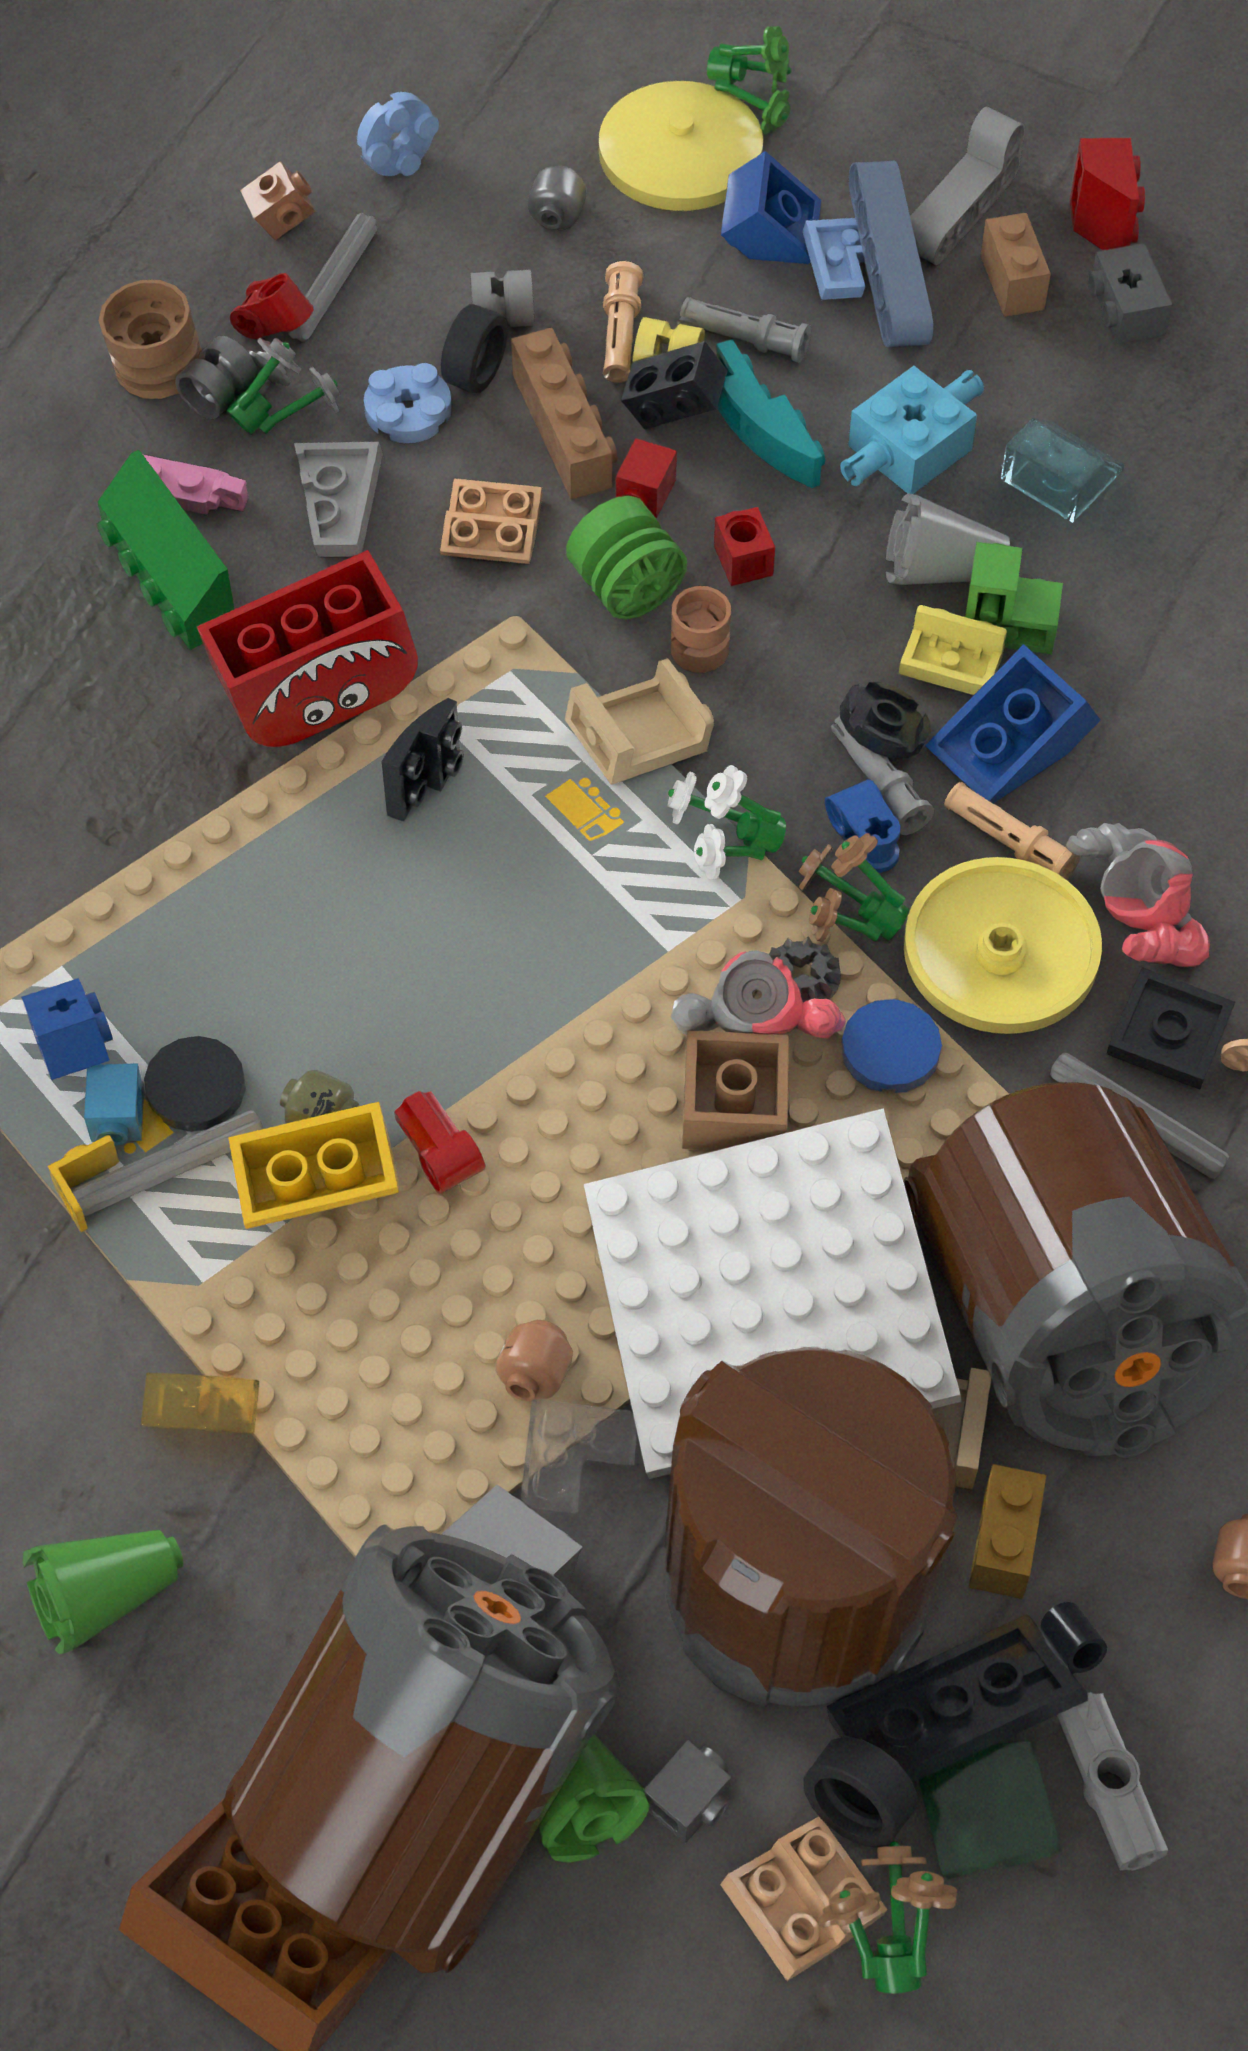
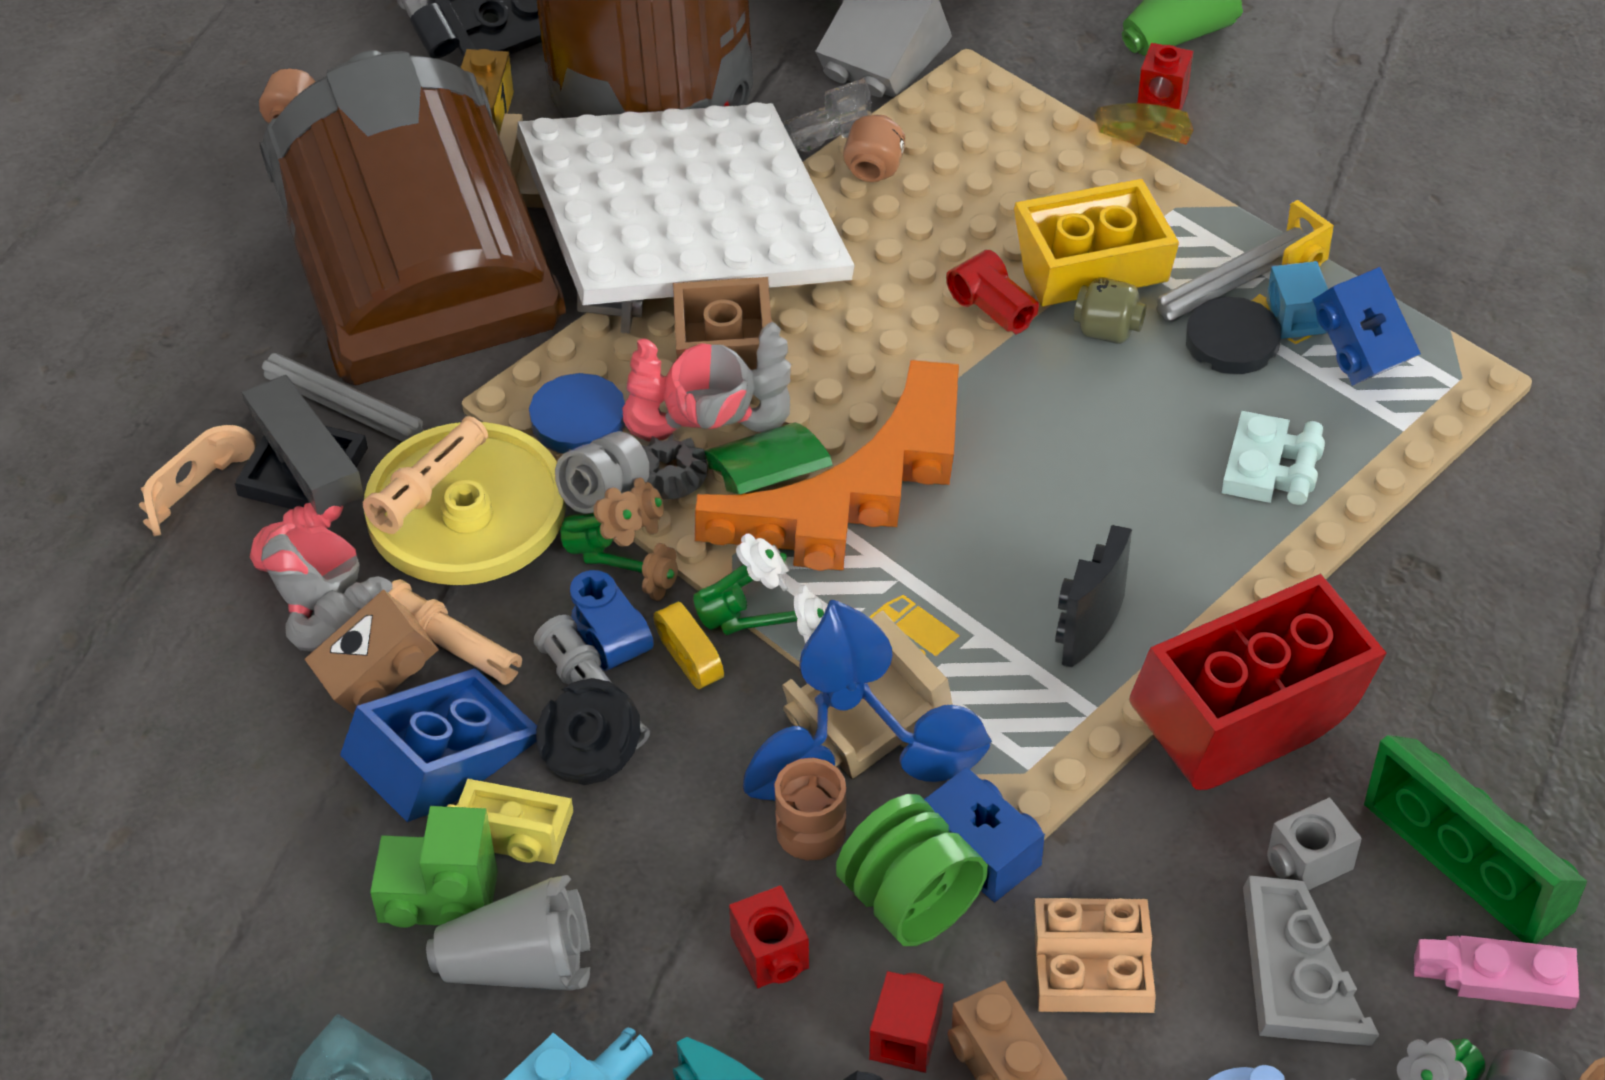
camera: 175 degrees right, 10 degrees down
(154, 1464) = (1165, 76): none -> red brick
(218, 937) = (1256, 458): none -> light aqua plate
(293, 561) = (1319, 828): none -> light grey brick
(562, 607) = (993, 828): none -> blue brick
(609, 919) = (863, 489): none -> orange arch
(663, 692) = (839, 662): none -> blue plant
(697, 939) = (768, 458): none -> green slope
(793, 796) = (688, 645): none -> yellow beam
(868, 933) = (603, 464): none -> light grey wheel
(1052, 927) = (413, 485): none -> light nougat pin
(1079, 791) = (371, 653): none -> medium nougat brick
(1174, 1016) = (304, 444): none -> dark grey slope

